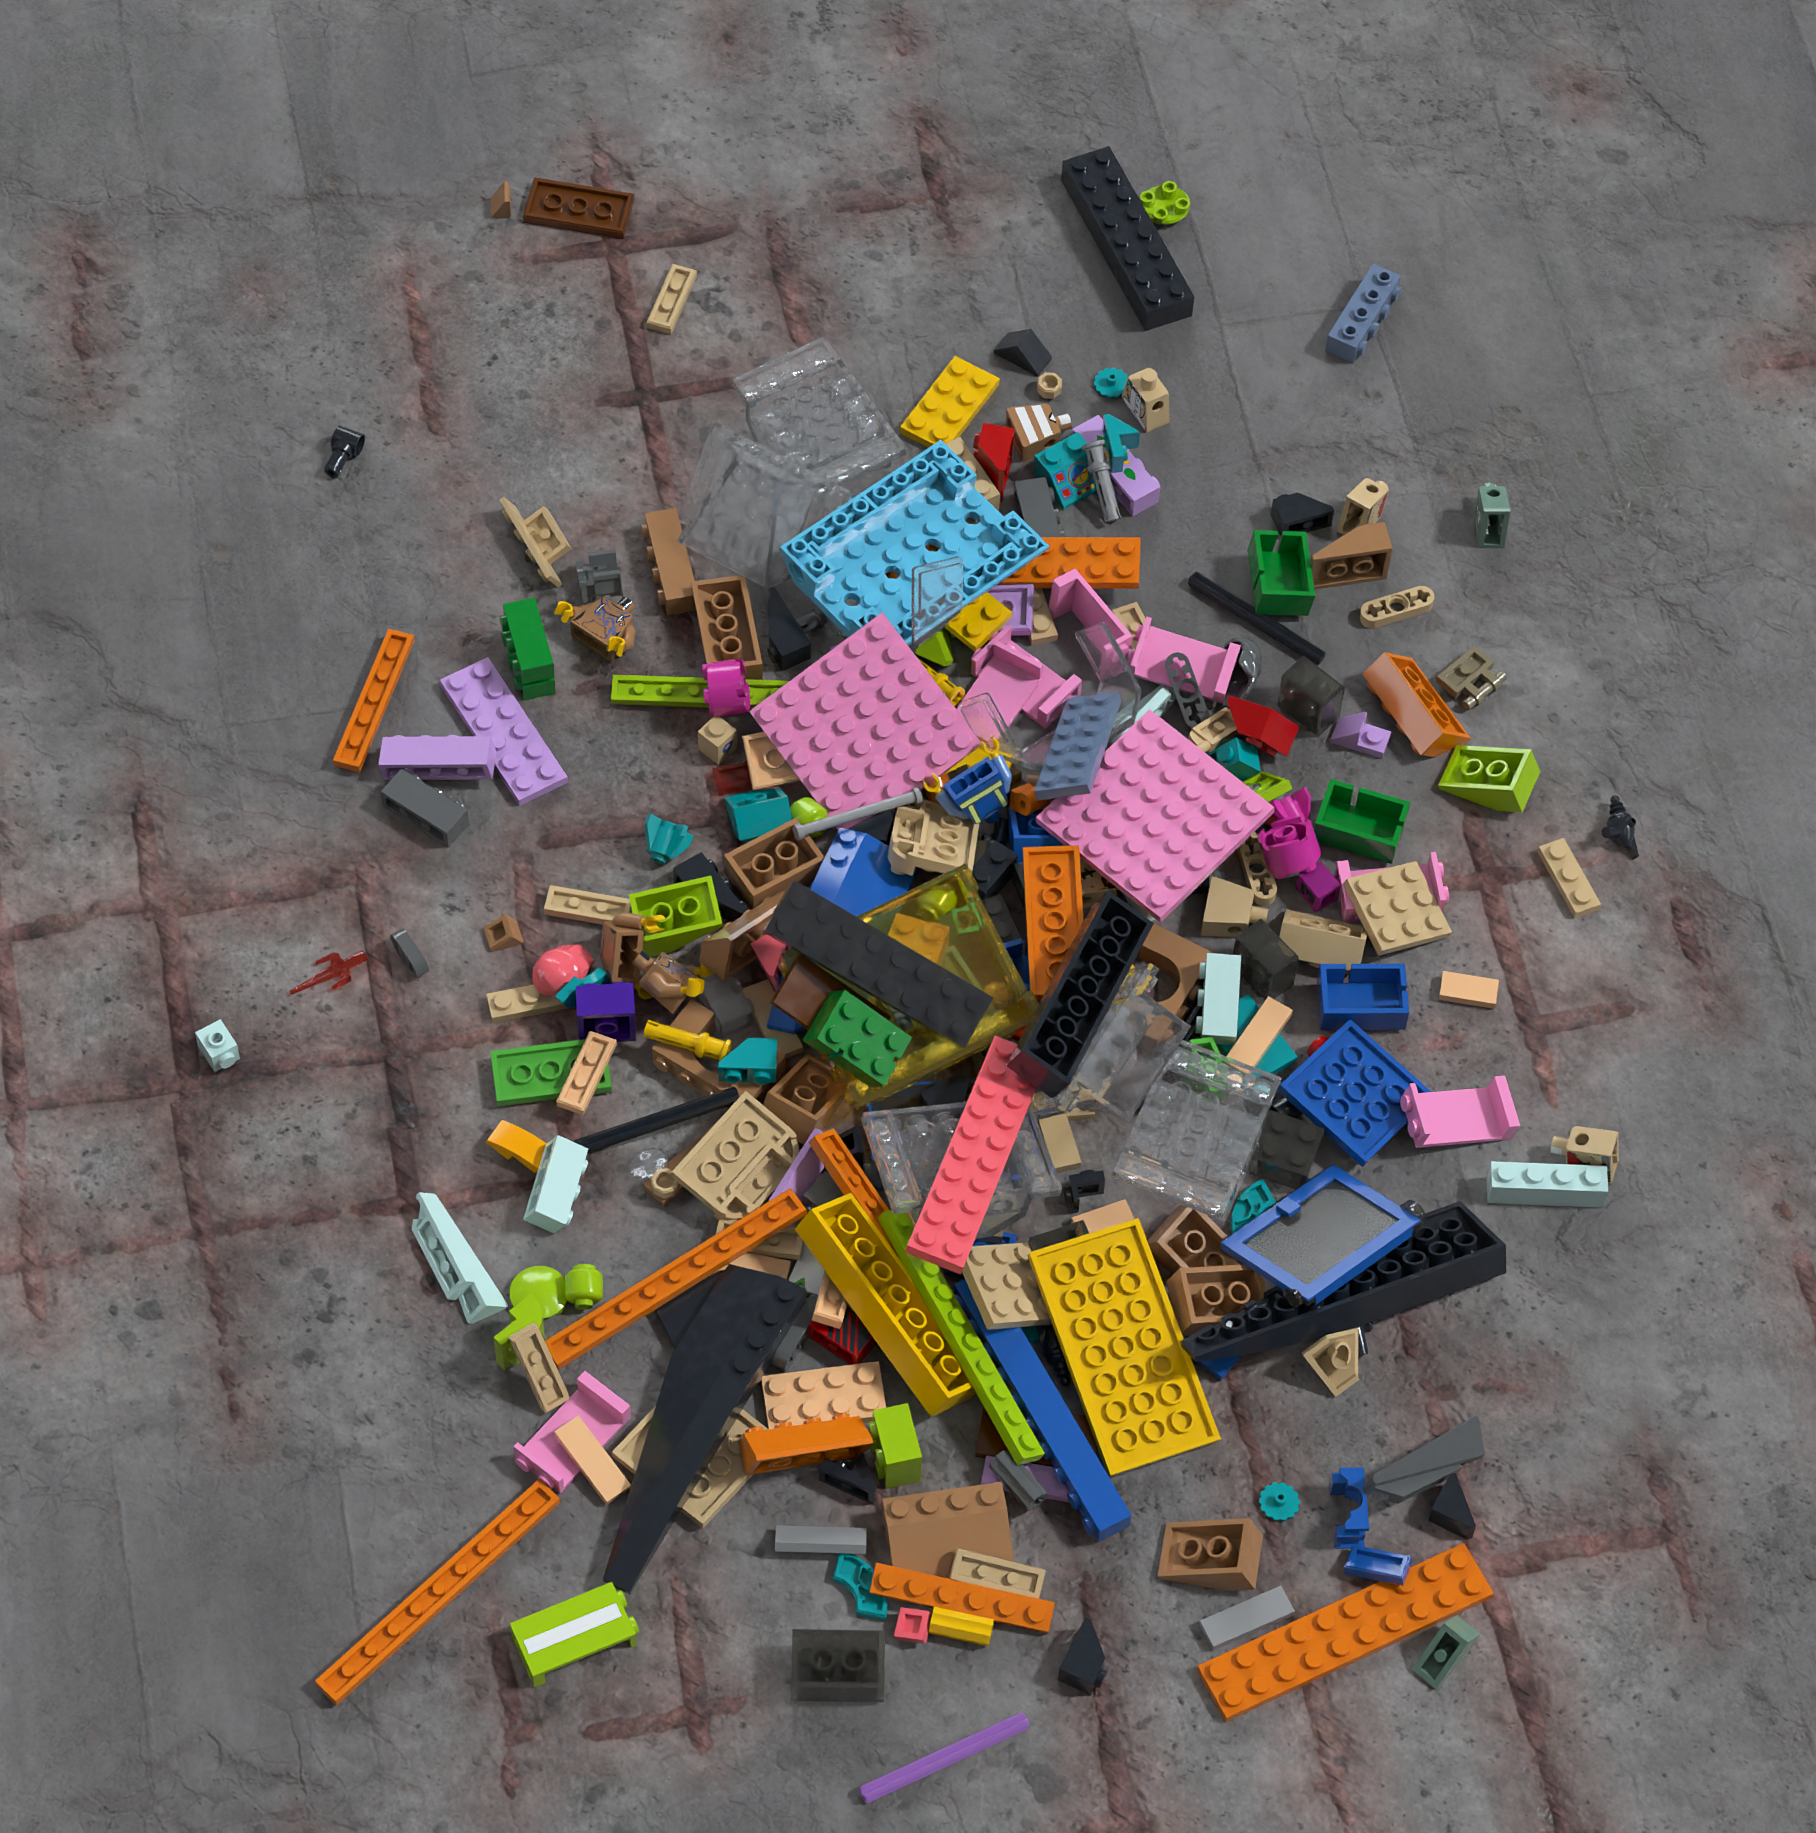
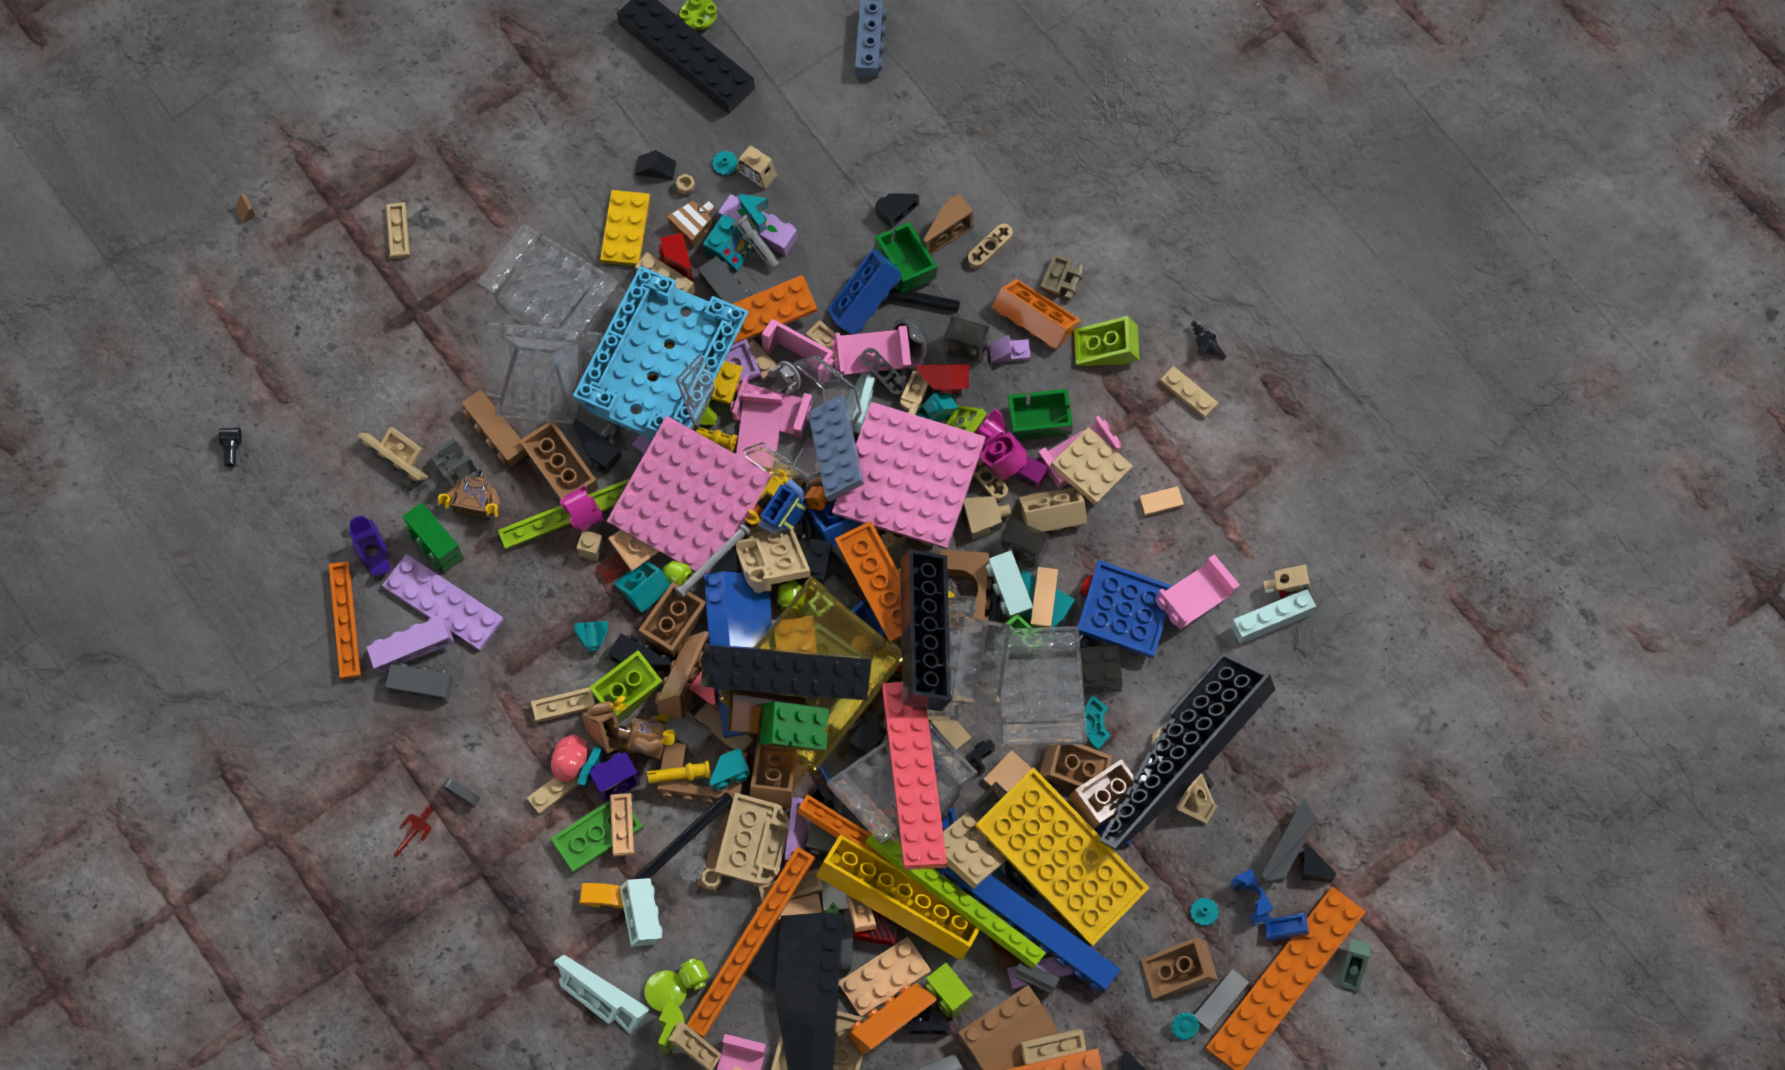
camera: 20 degrees left, 10 degrees up
(217, 1045) = (368, 918): light aqua brick -> none
(453, 617) = (364, 535): none -> dark purple piece
(503, 933) = (515, 749): medium nougat slope -> none
(578, 208) = (299, 189): reddish brown tile -> none
(1059, 638) = (783, 371): none -> light grey piece
(1183, 1627) = (1185, 1026): none -> teal piece
(1208, 589) = (864, 292): none -> blue slope
(1323, 1235) = (1151, 720): door -> none
(1366, 498) = (937, 178): tan torso -> none
(1366, 999) = (1099, 540): blue piece -> none
(1493, 503) = (1020, 146): sand green torso -> none

